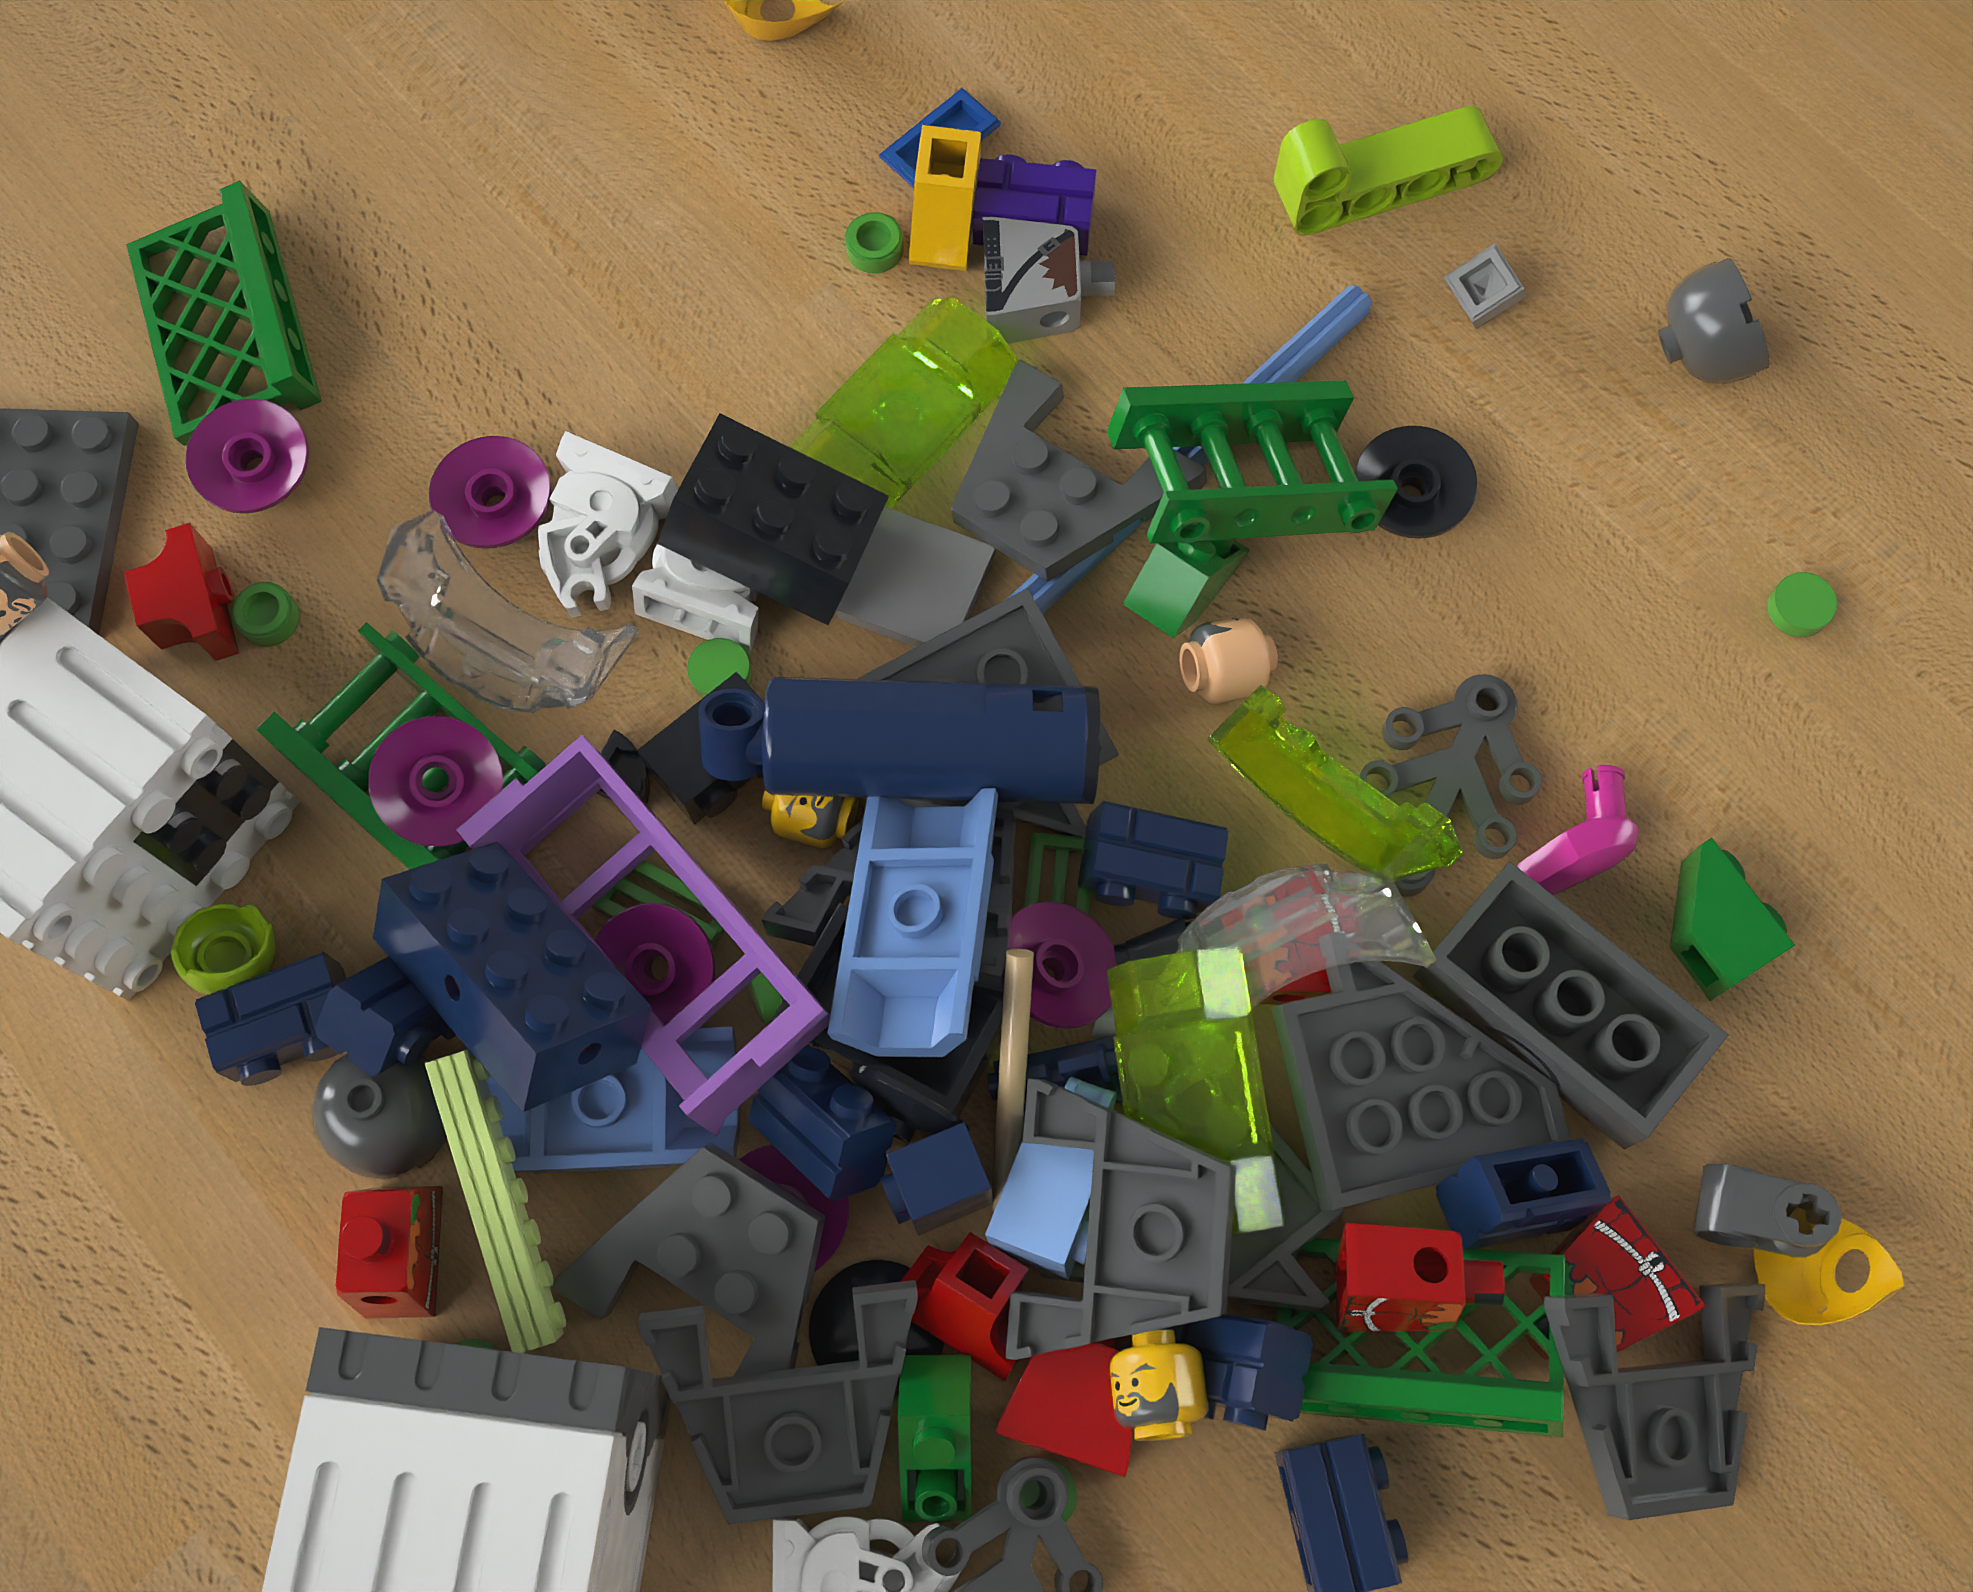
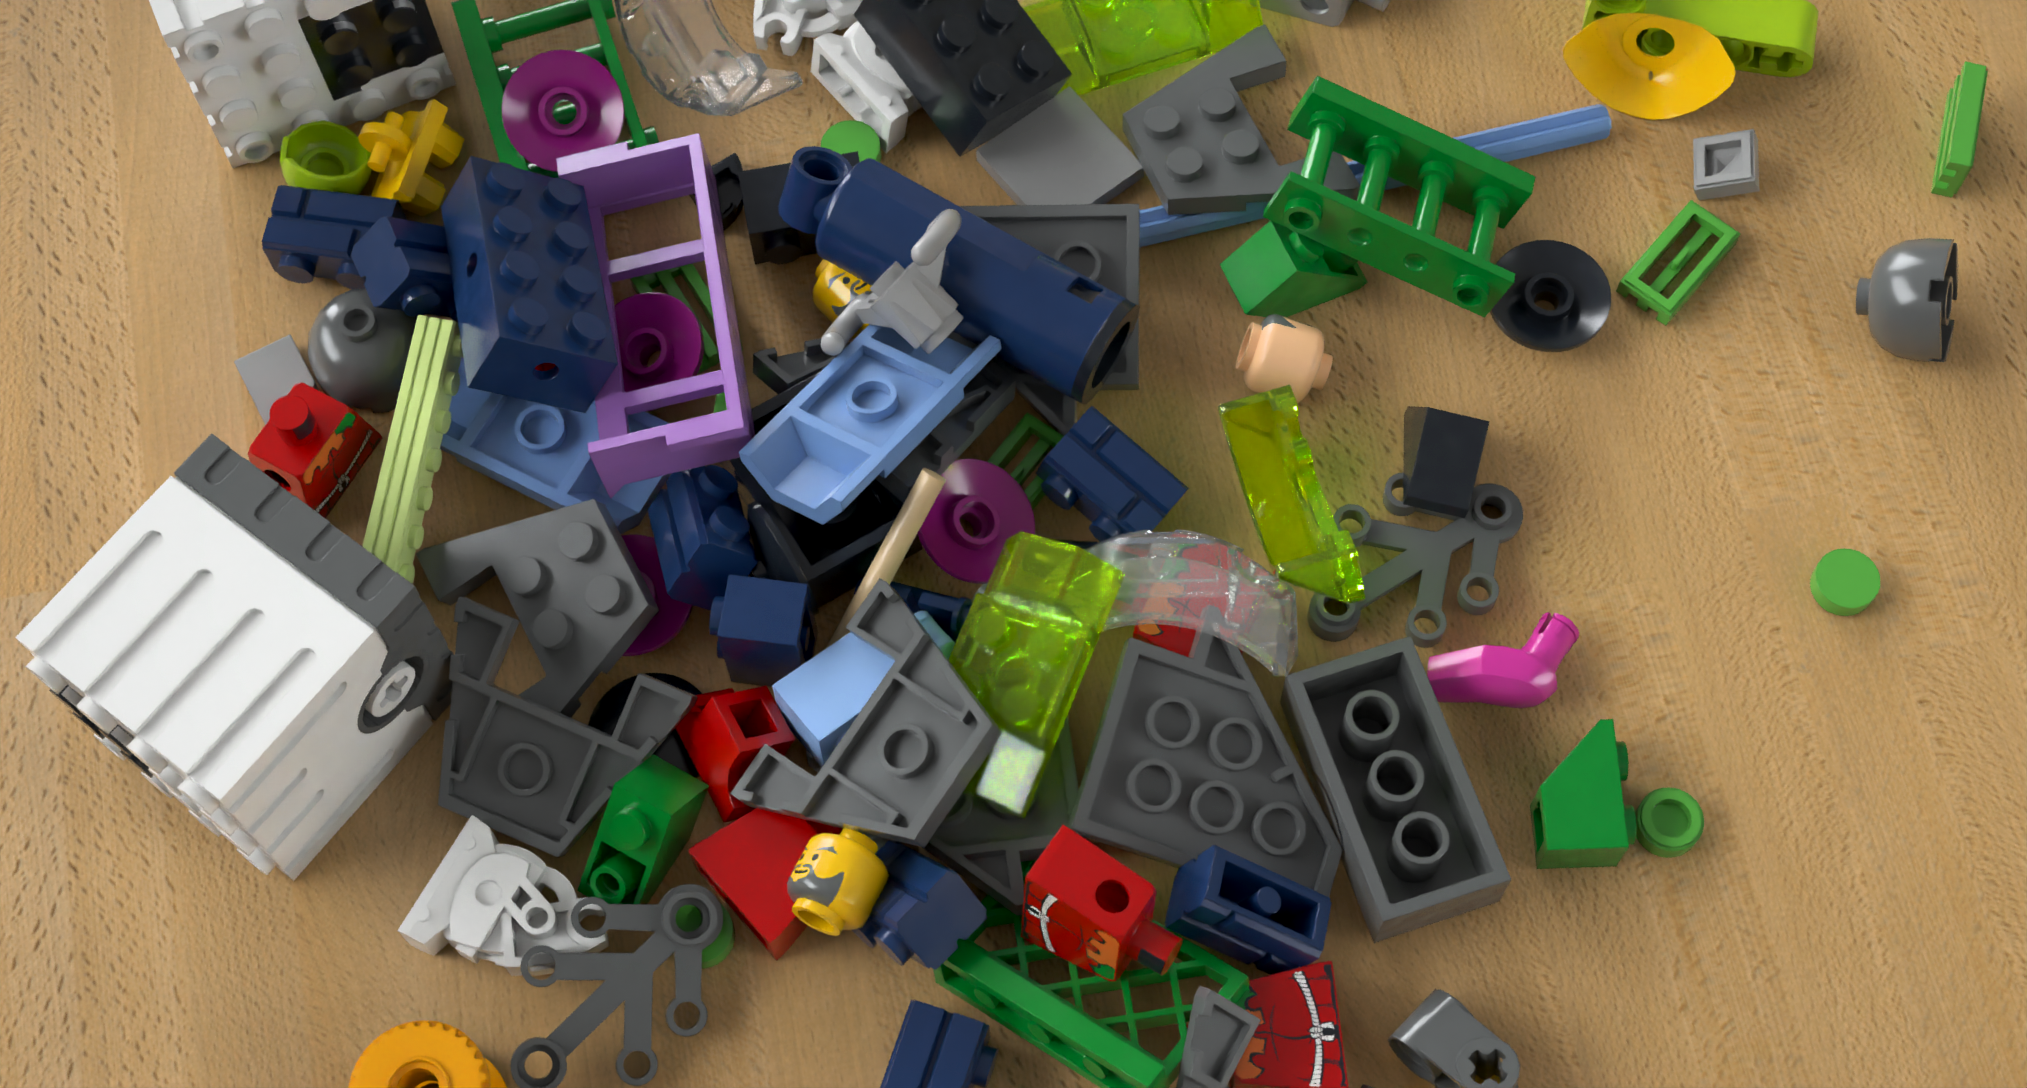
camera: 30 degrees right, 5 degrees down
(299, 899) = (401, 153): none -> yellow hips
(307, 1191) = (273, 373): none -> light grey tile
(891, 795) = (906, 298): none -> light grey piece
(1403, 233) = (1617, 70): none -> yellow piece
(1421, 678) = (1441, 459): none -> black slope
(1490, 435) = (1651, 295): none -> bright green tile
(1654, 157) = (1959, 130): none -> bright green tile
(1796, 895) = (1669, 822): none -> bright green tile

